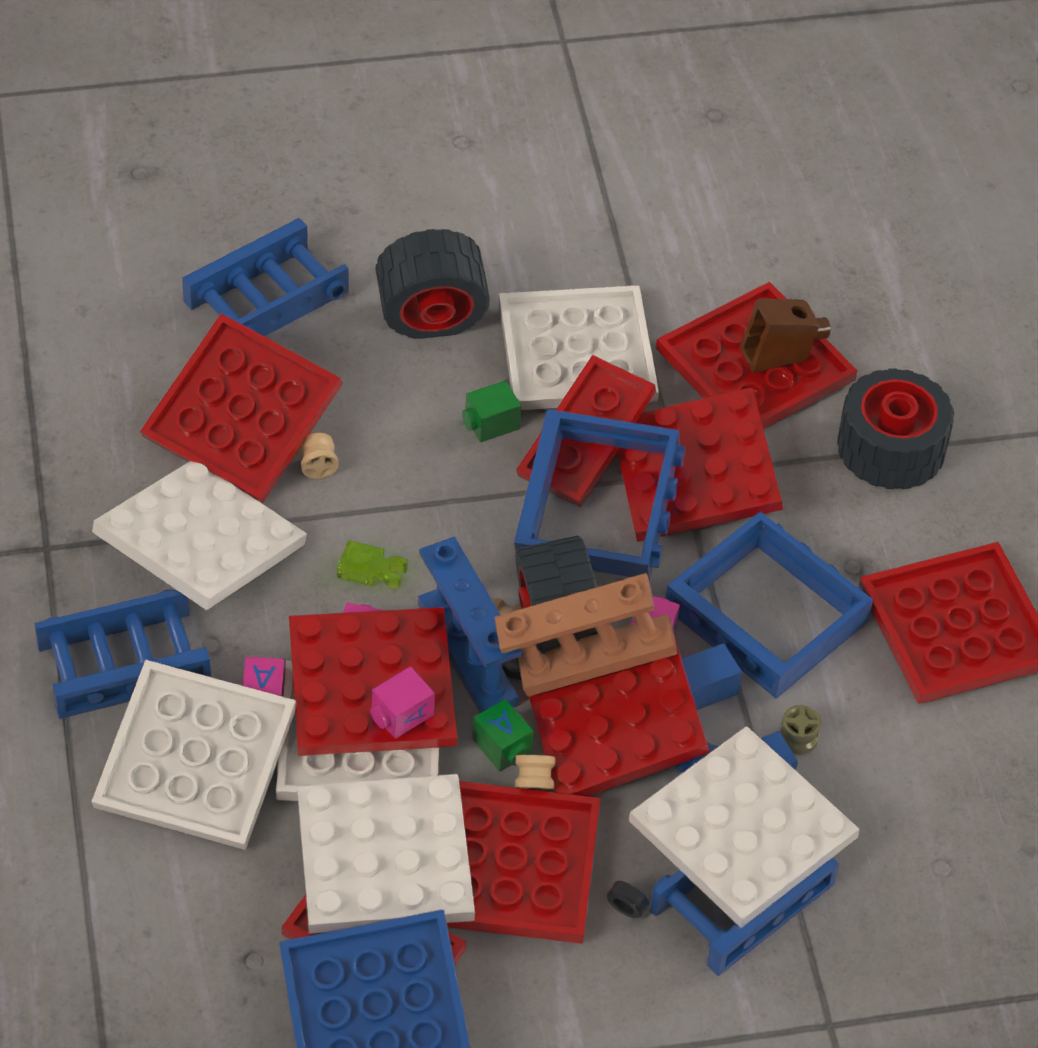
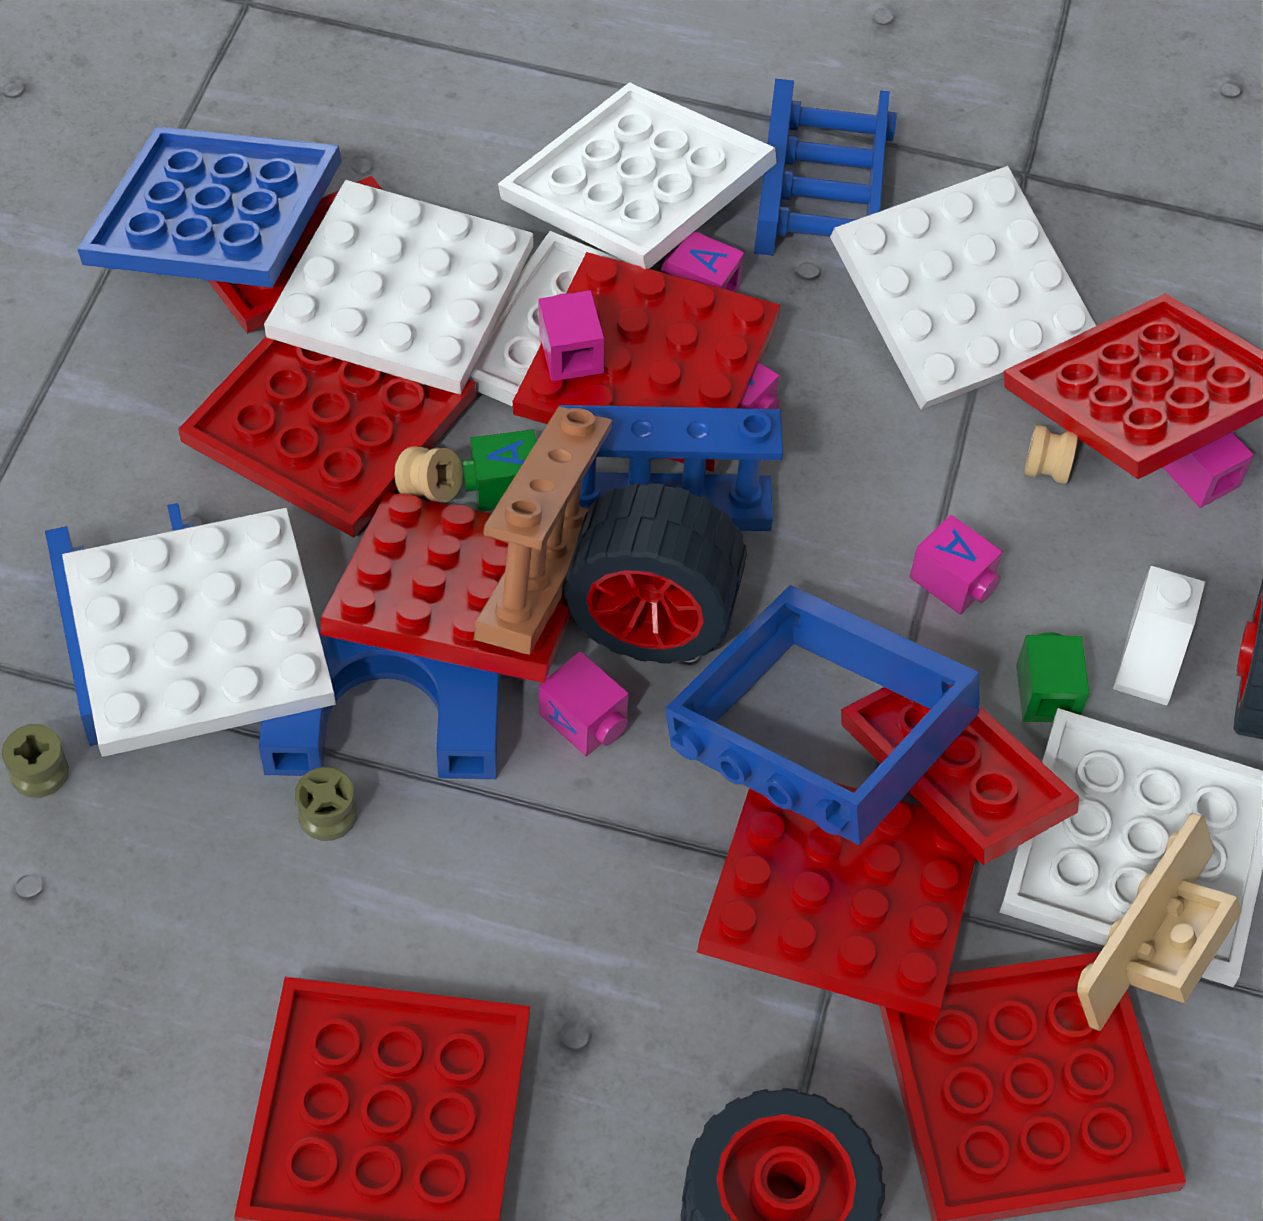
camera: 115 degrees right, 5 degrees up
(365, 563) = (852, 449): clear neon green plate -> none
(429, 370) = (1159, 635): none -> white slope
(435, 478) = (956, 565): none -> dark pink brick
(627, 899) = (201, 497): black tile -> none
(641, 306) = (1165, 933): none -> tan bracket
(781, 333) = (1034, 1076): reddish brown torso -> none
(802, 563) = (528, 783): blue window -> none
(870, 904) = (49, 765): none -> olive wheel

